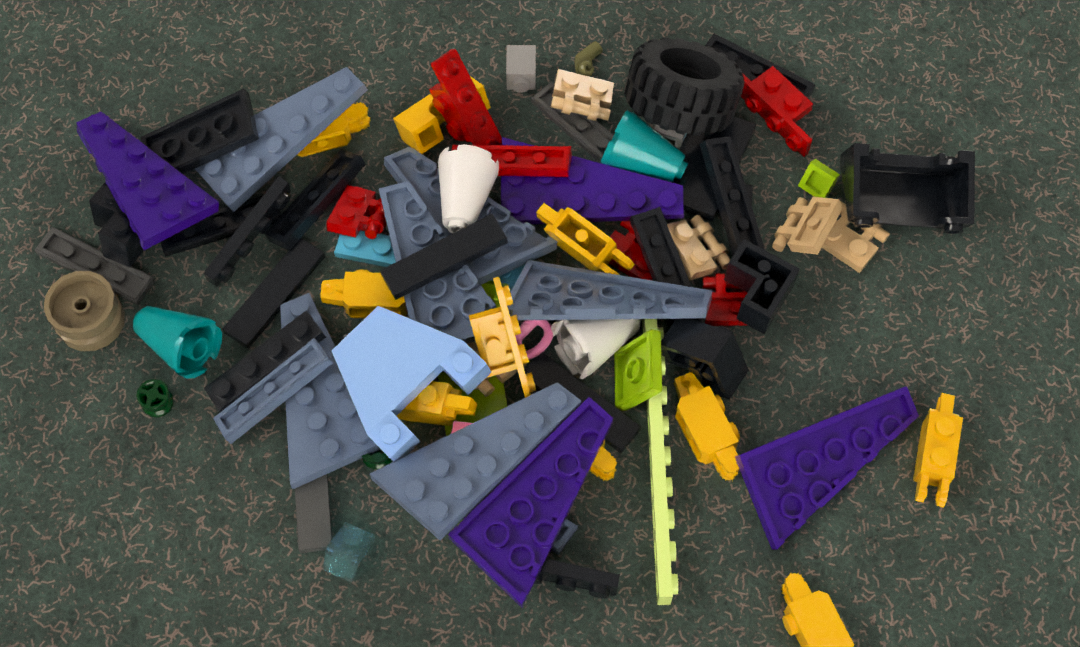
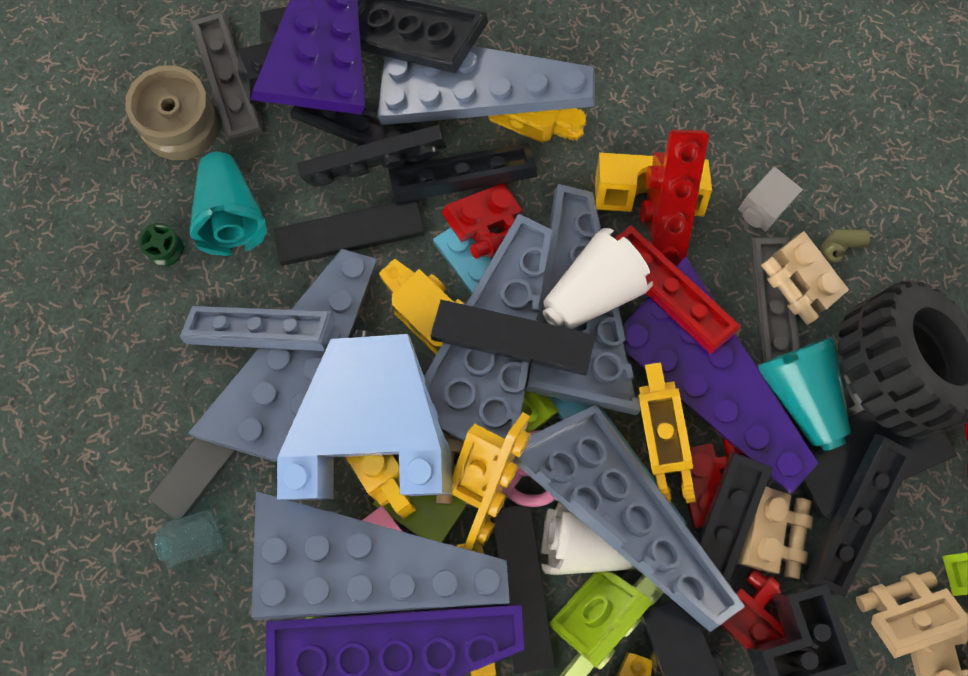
camera: 40 degrees right, 10 degrees up
(263, 360) = (278, 292): black plate -> none

